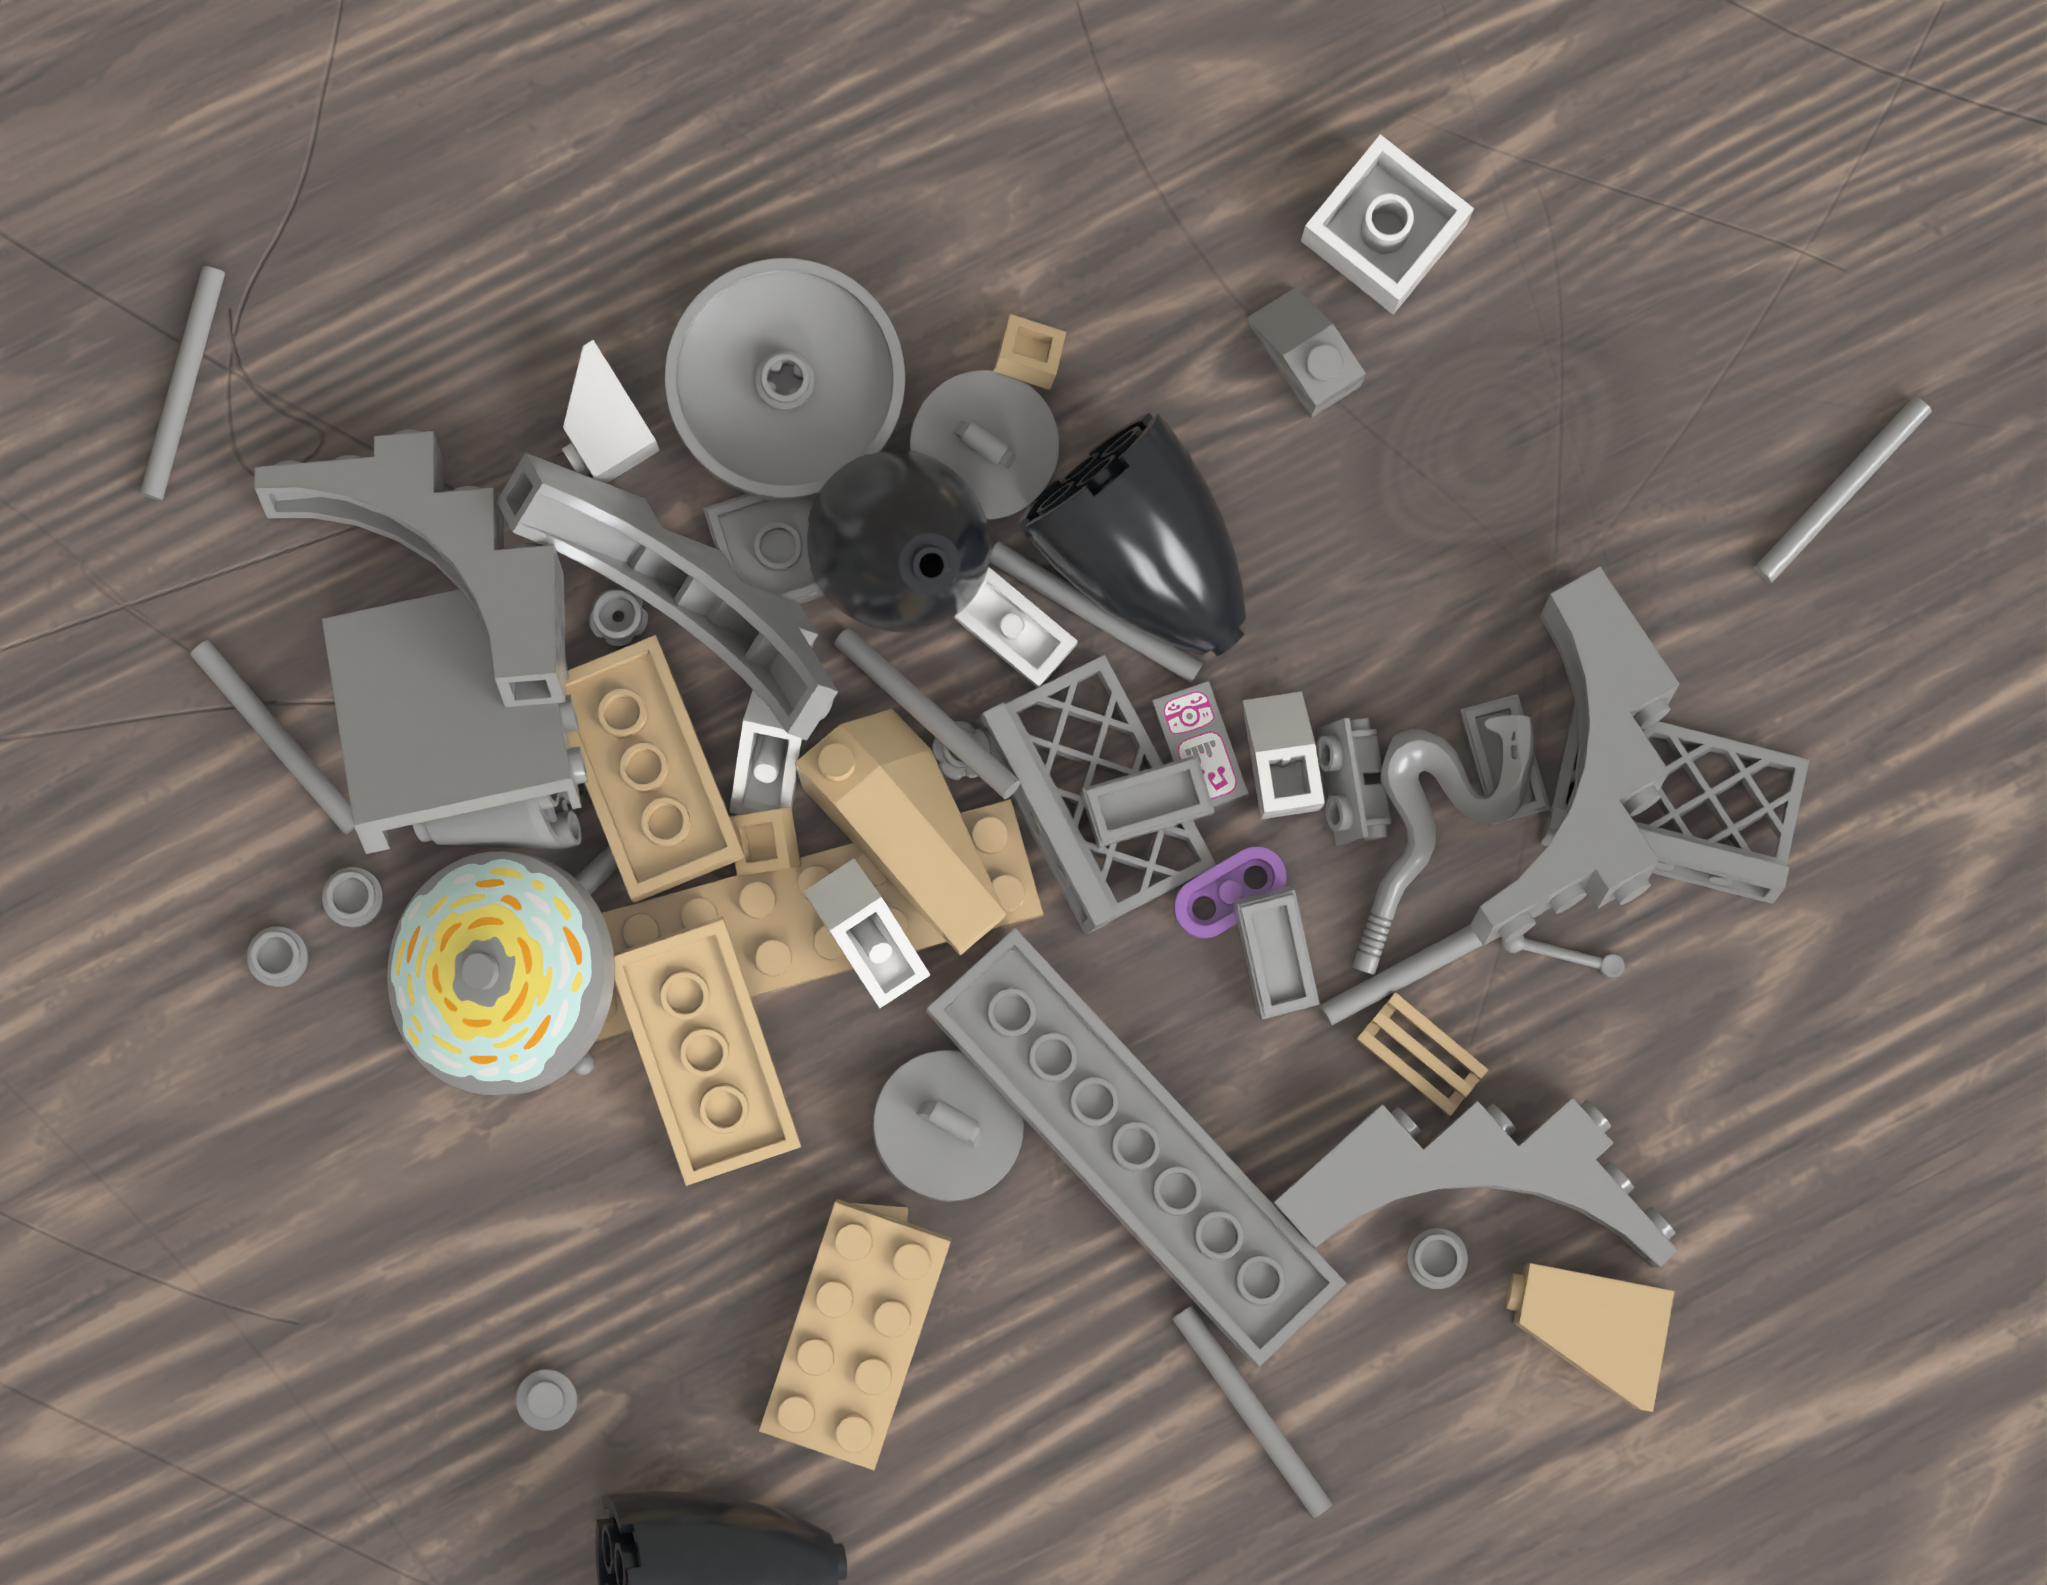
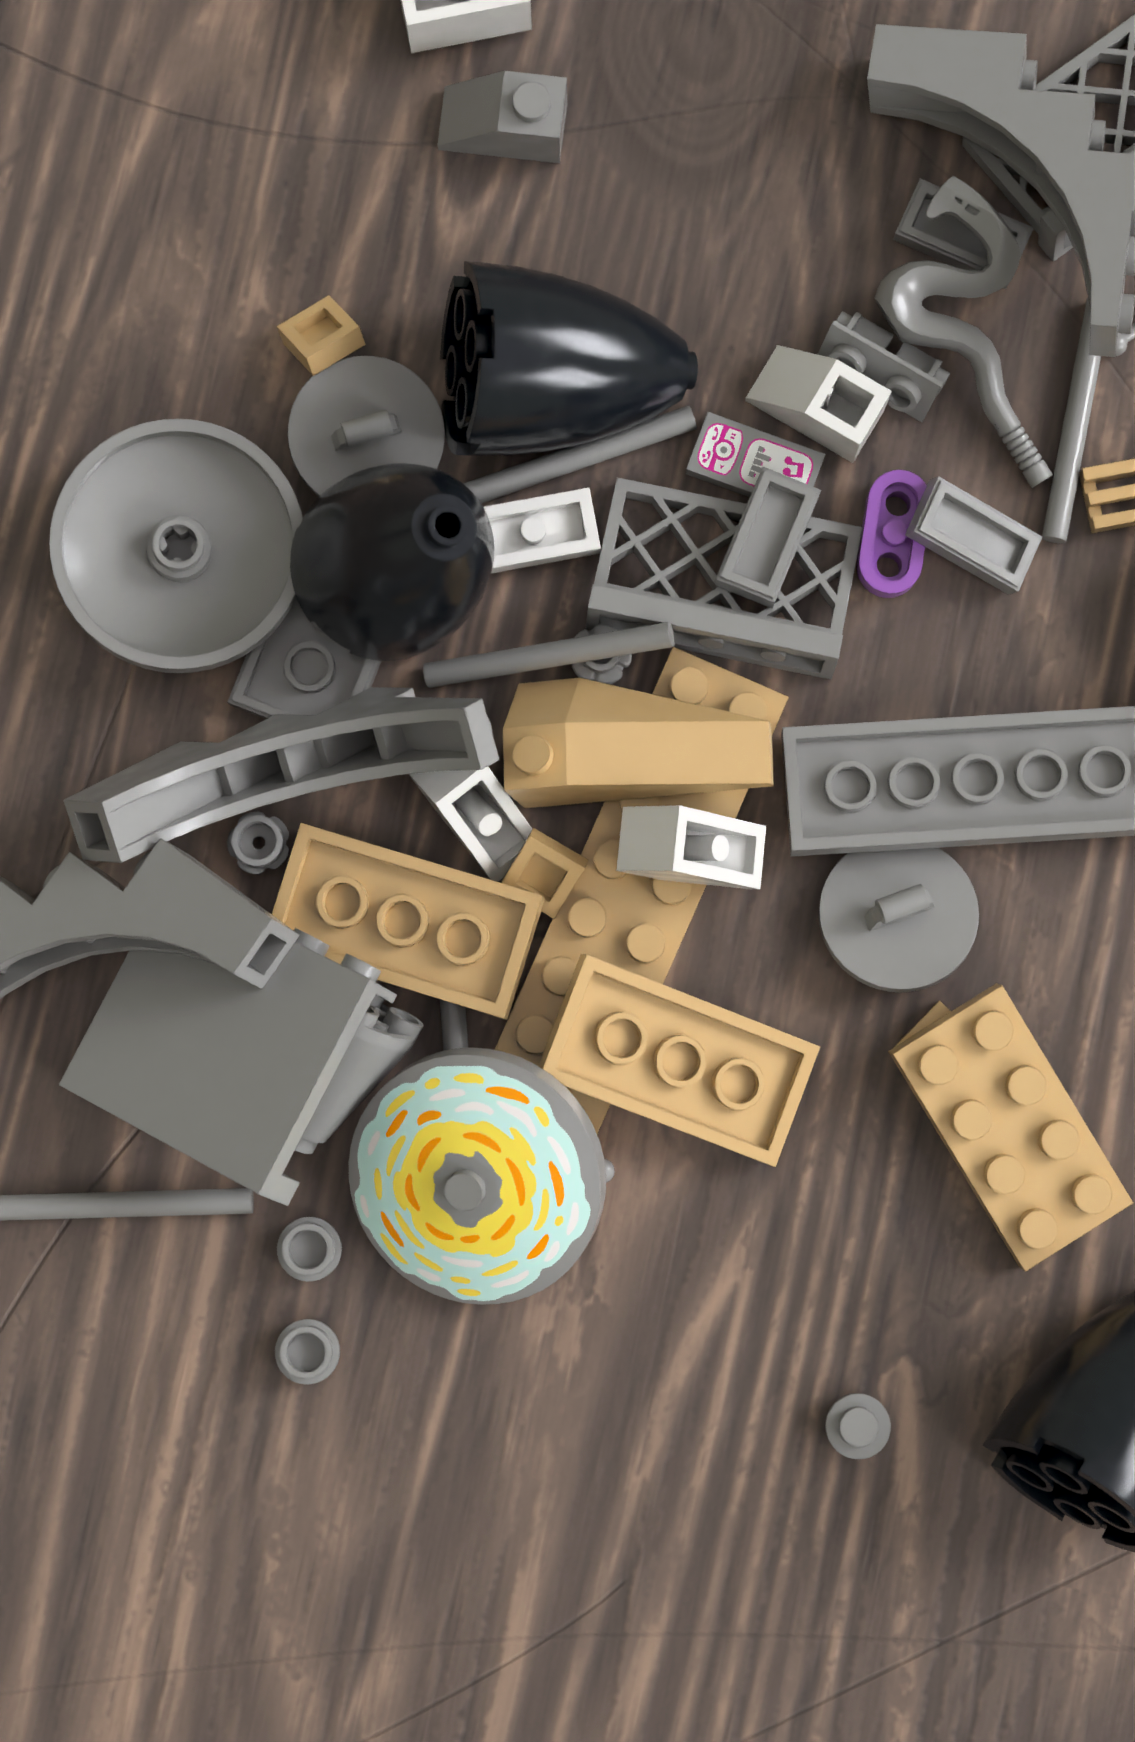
camera: 45 degrees left, 0 degrees up
(603, 422) = (89, 722): white slope -> none

